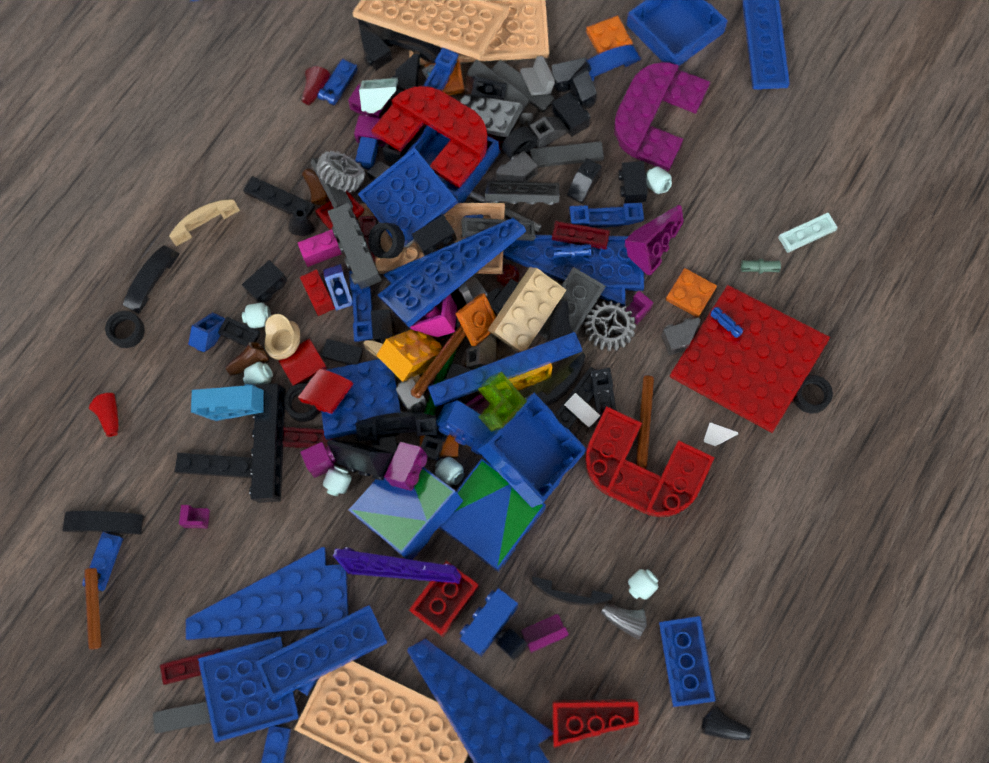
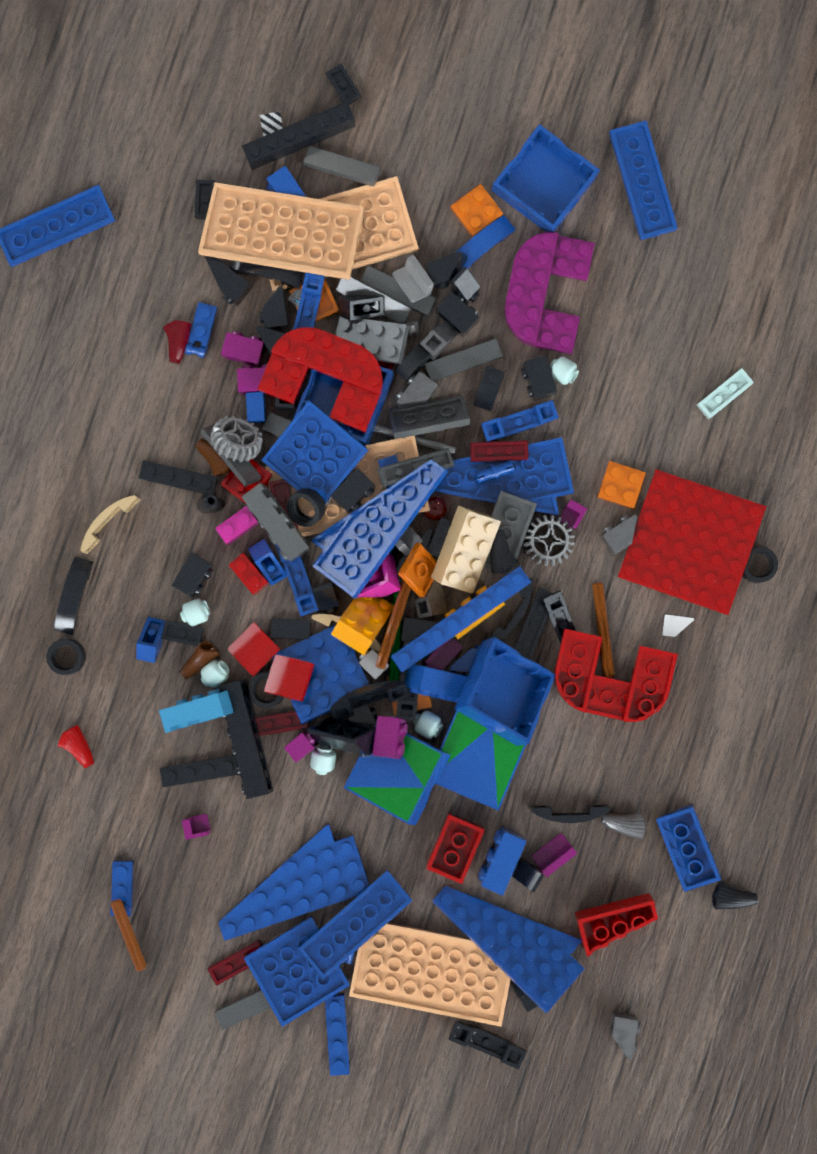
camera: 20 degrees left, 15 degrees up
(103, 522) = (109, 852): black slope -> none
(281, 337) = (227, 629): tan piece -> none
(376, 93) = (251, 342): light aqua slope -> none
(385, 566) = (359, 835): dark purple wing -> none
(503, 400) = (469, 658): clear neon green brick -> none
(582, 410) = (541, 634): white sticker -> none
(643, 584) = (634, 788): light aqua head -> none
(652, 239) = (569, 444): magenta wedge -> none
(728, 323) = (663, 512): blue axle -> none
(760, 266) = (684, 441): sand green pin -> none

